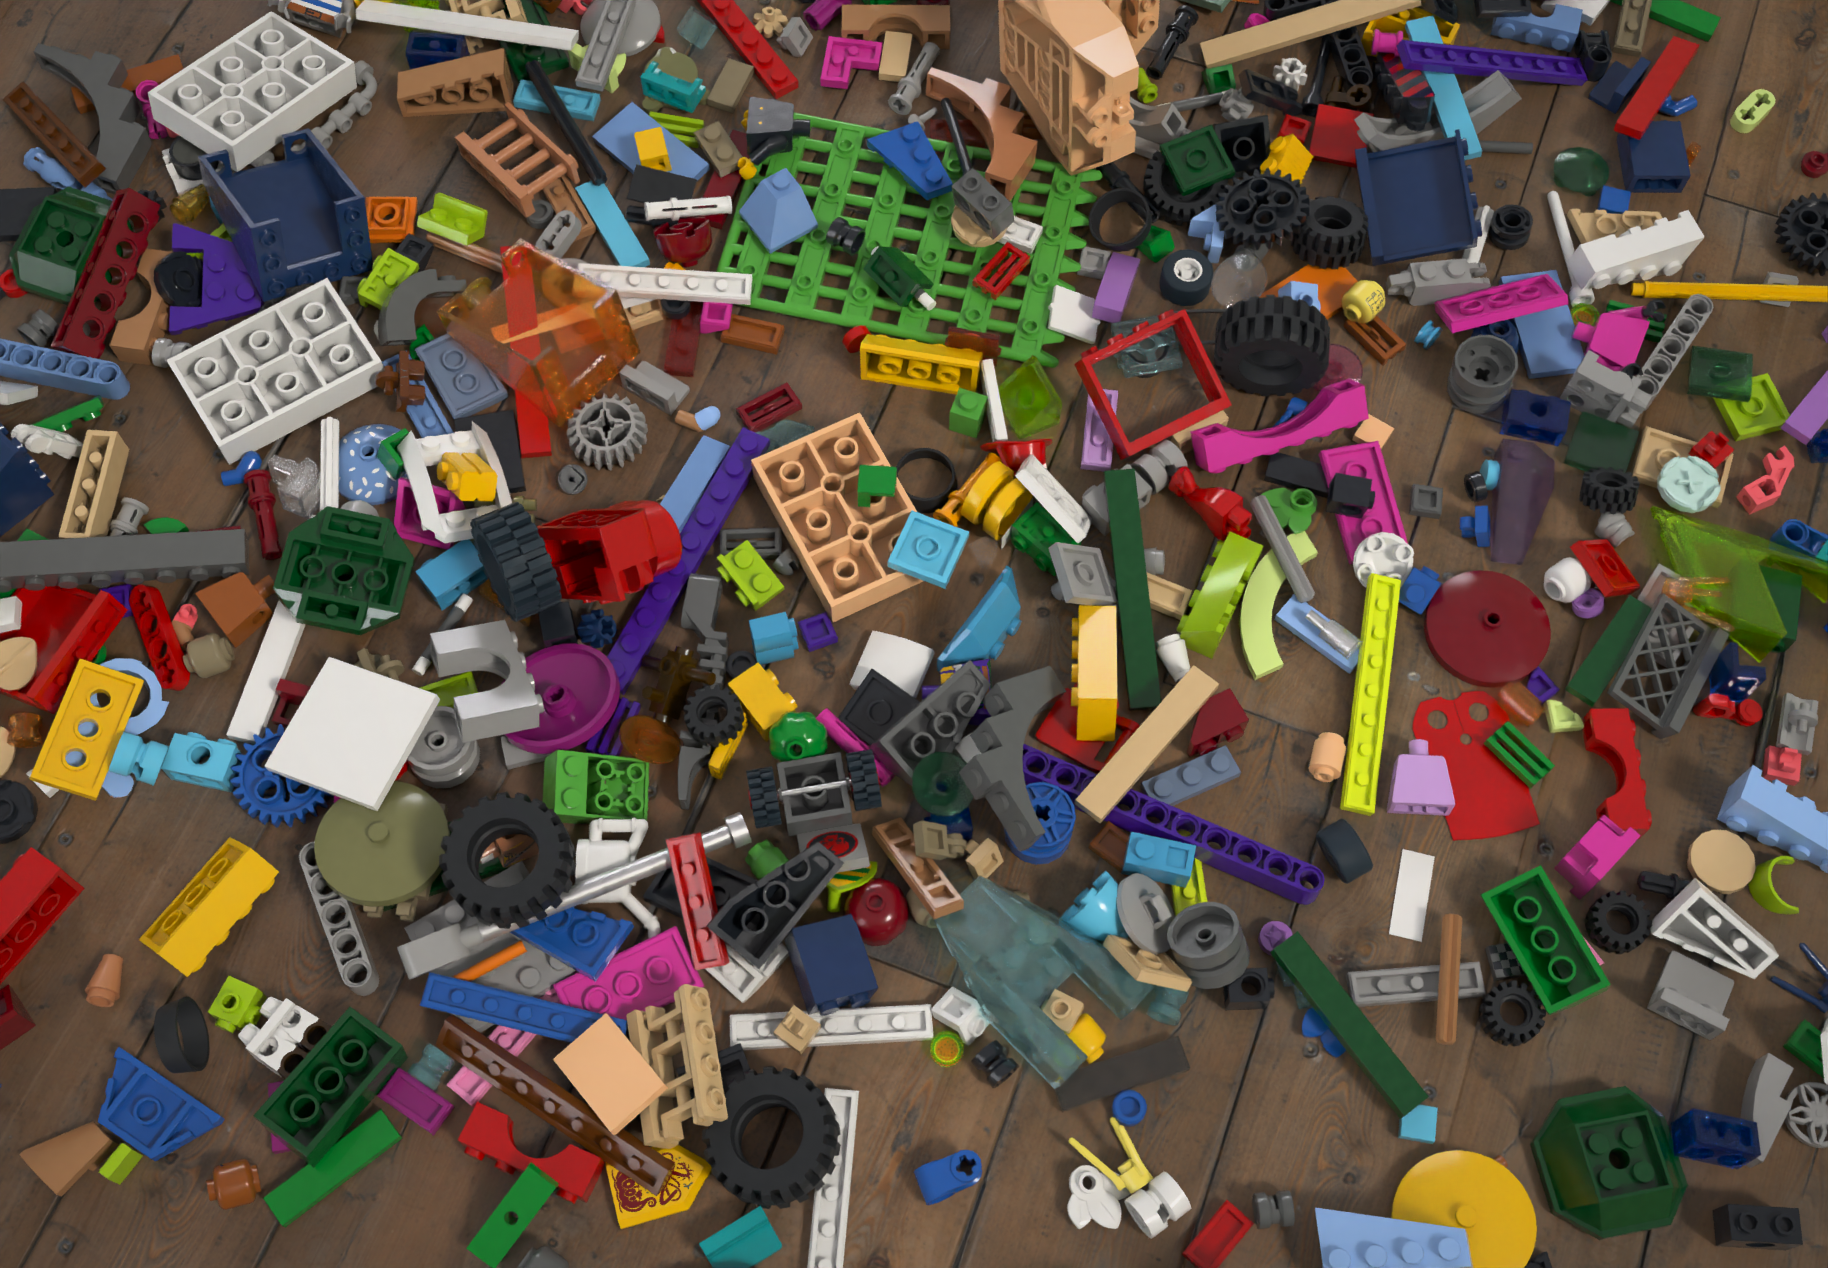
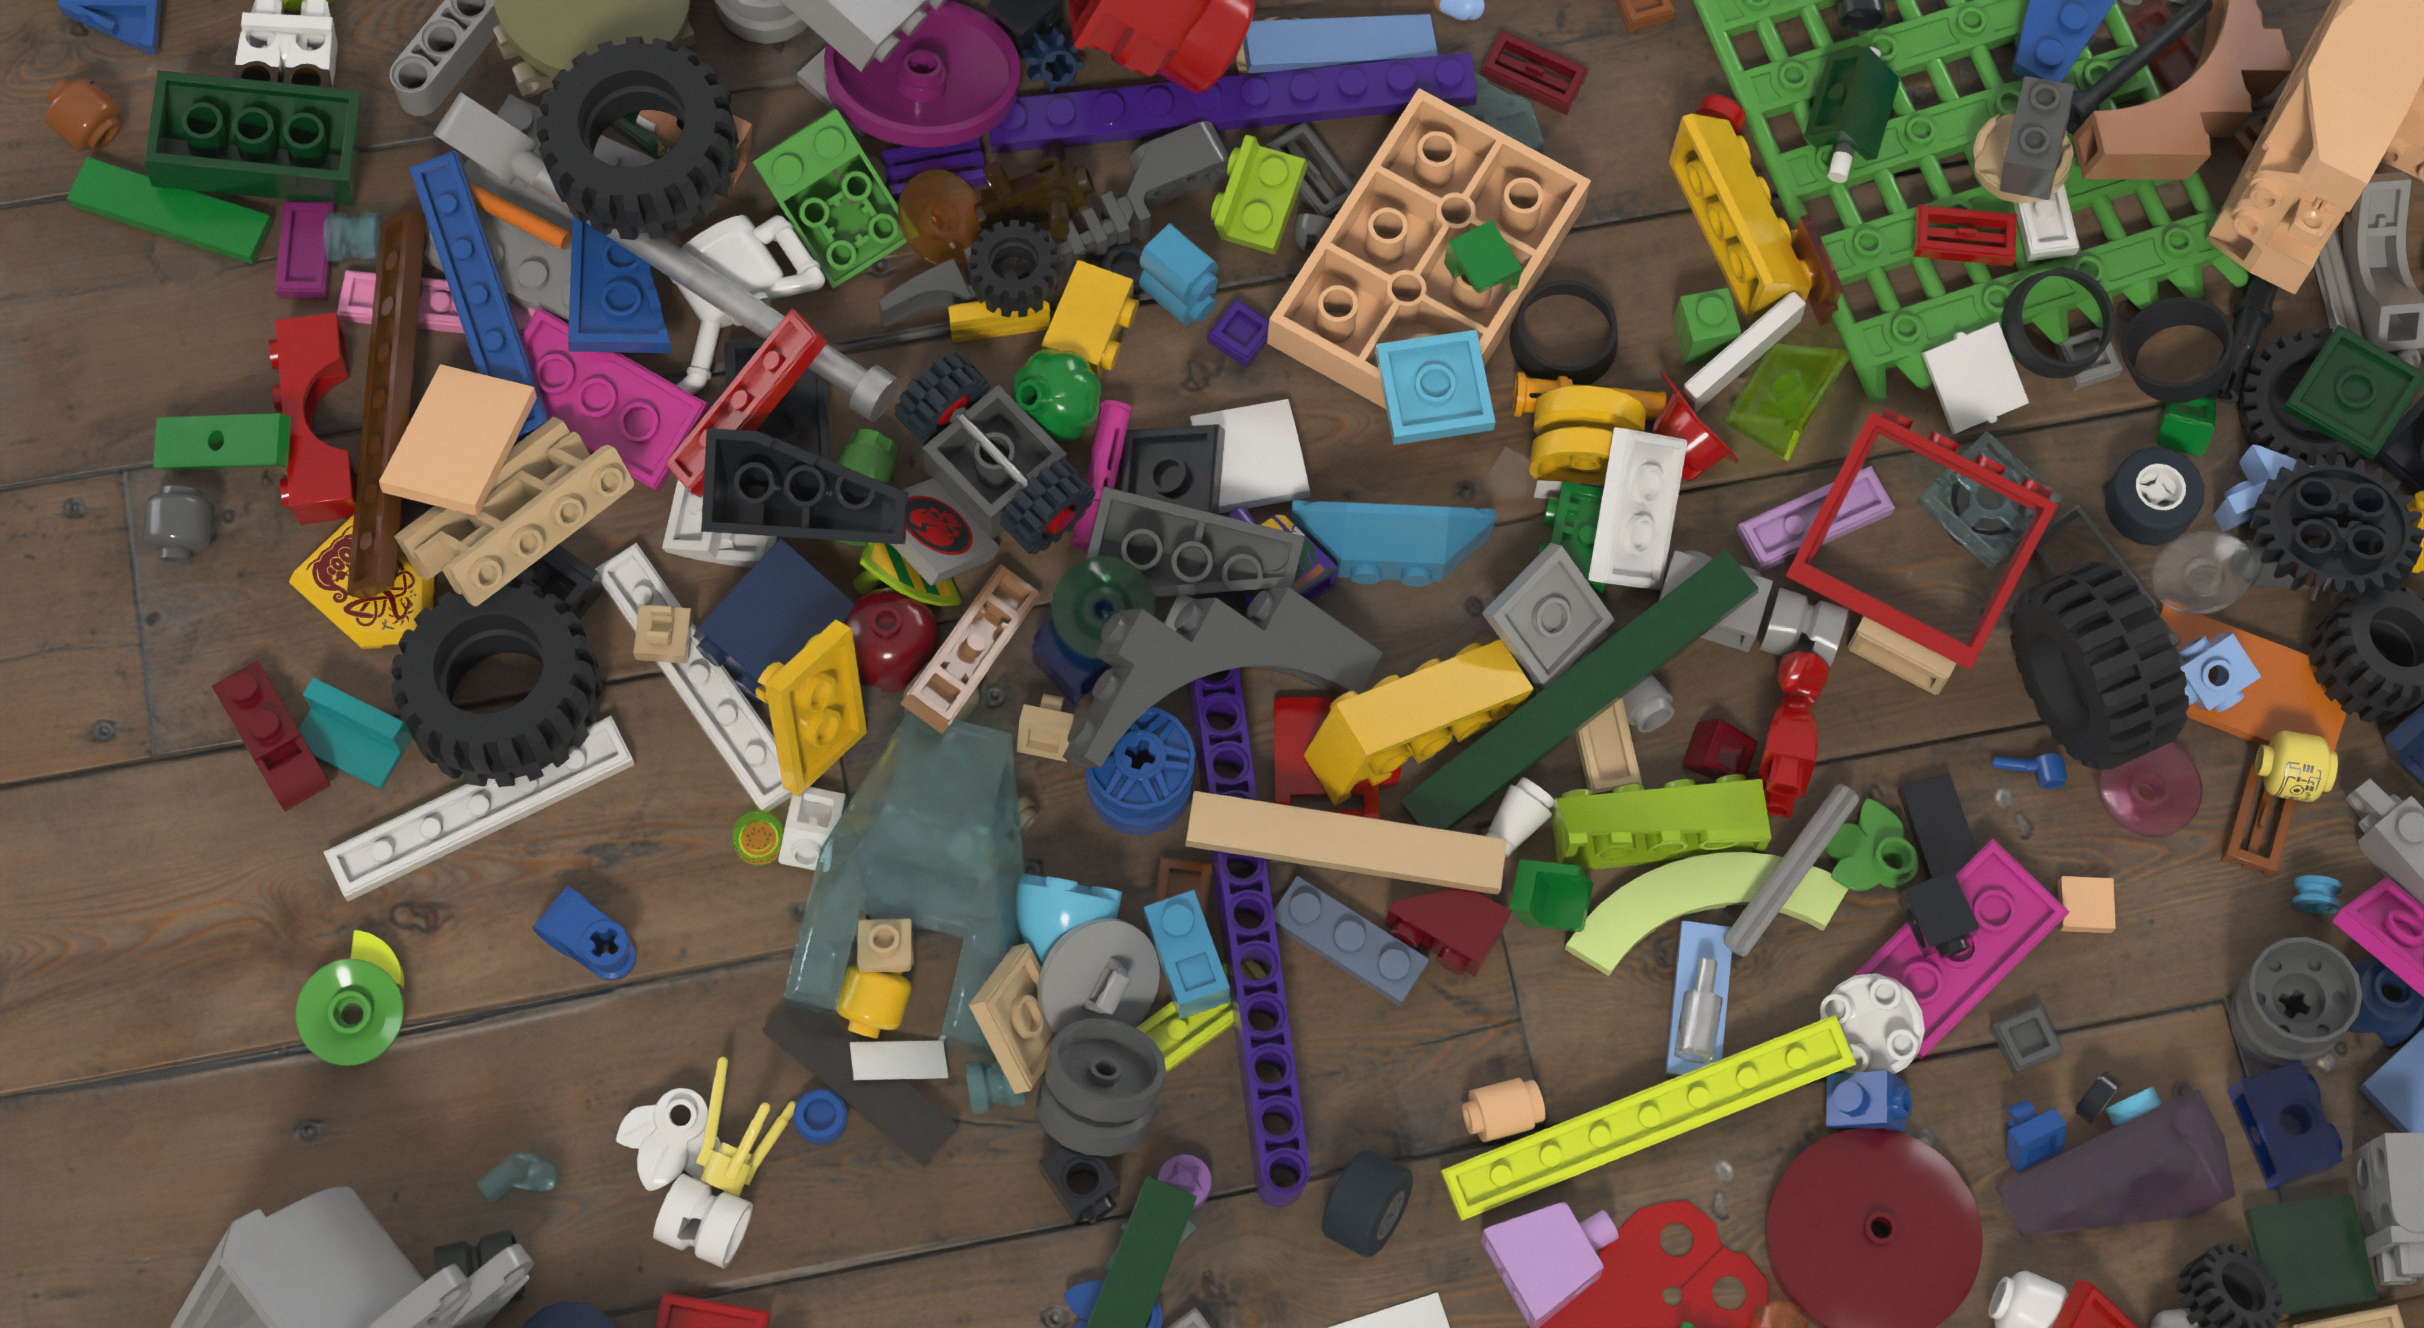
camera: 55 degrees right, 5 degrees up
(902, 968) = (814, 706): none -> yellow plate
(935, 843) = (1014, 644): dark tan plate -> none
(999, 1065) = (770, 907): black wheel -> none
(1060, 276) = (2023, 349): none -> black tyre
(1115, 288) = (2064, 408): medium lavender slope -> none
(1122, 1046) = (898, 1060): none -> white sticker
(1194, 546) = (1719, 750): none -> dark red slope
(1229, 665) = (1551, 895): none -> green panel
(1333, 408) = (2077, 820): dark pink arch -> none

